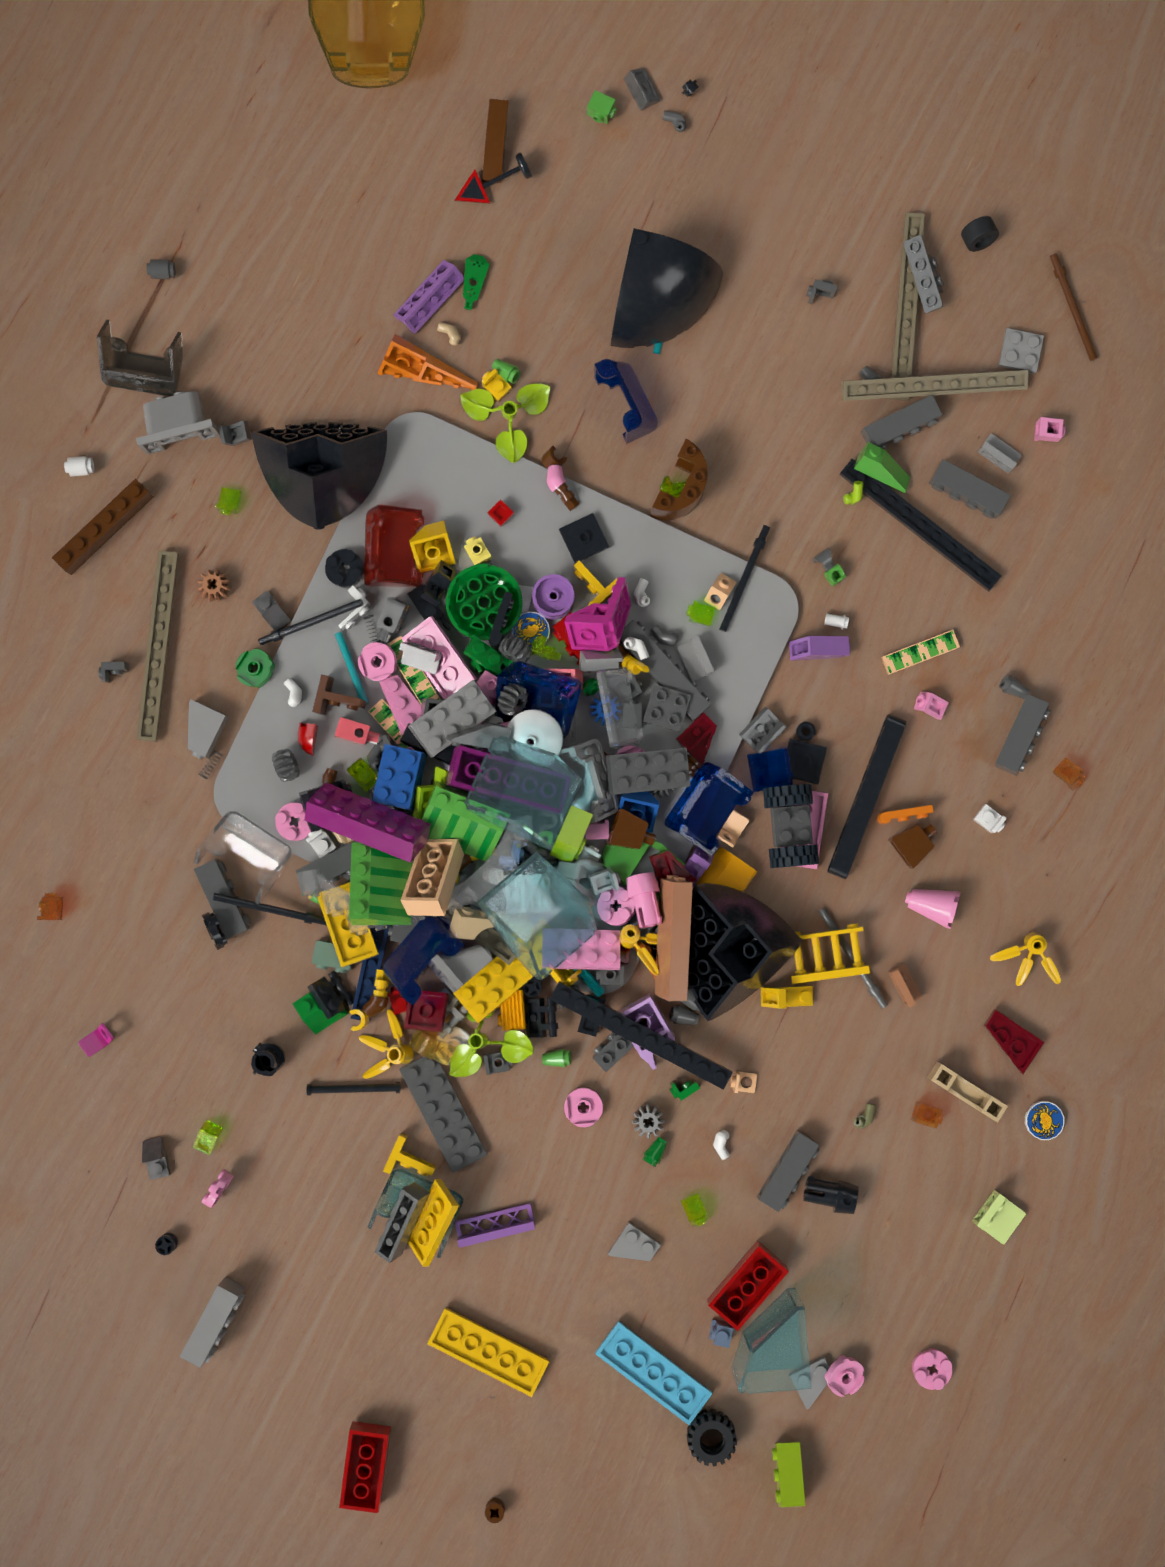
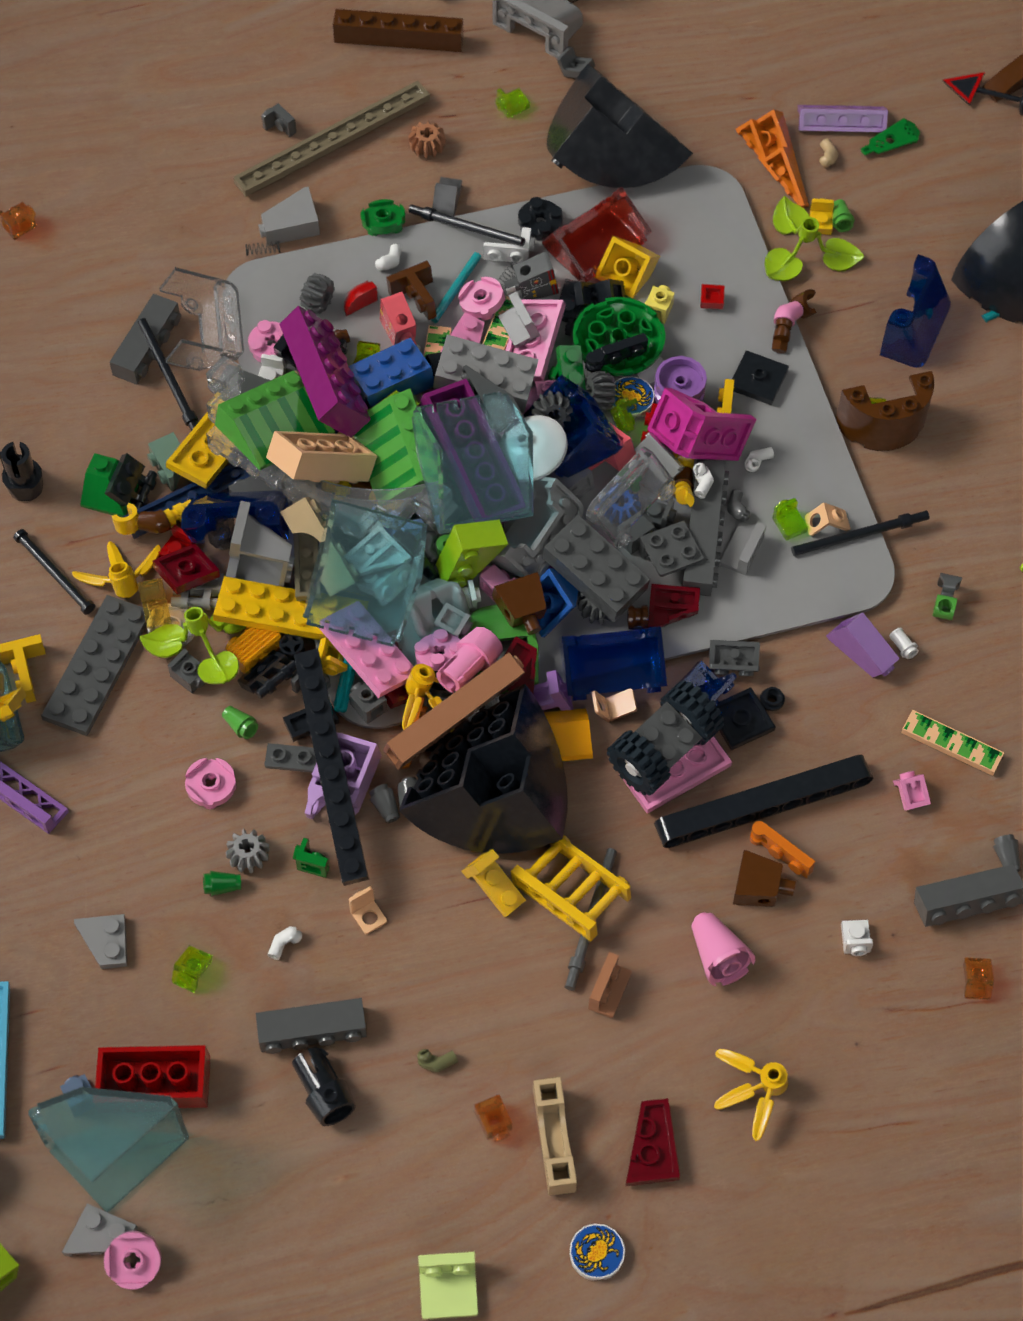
camera: 50 degrees right, 25 degrees down
(211, 923) = (108, 347): black plate -> none

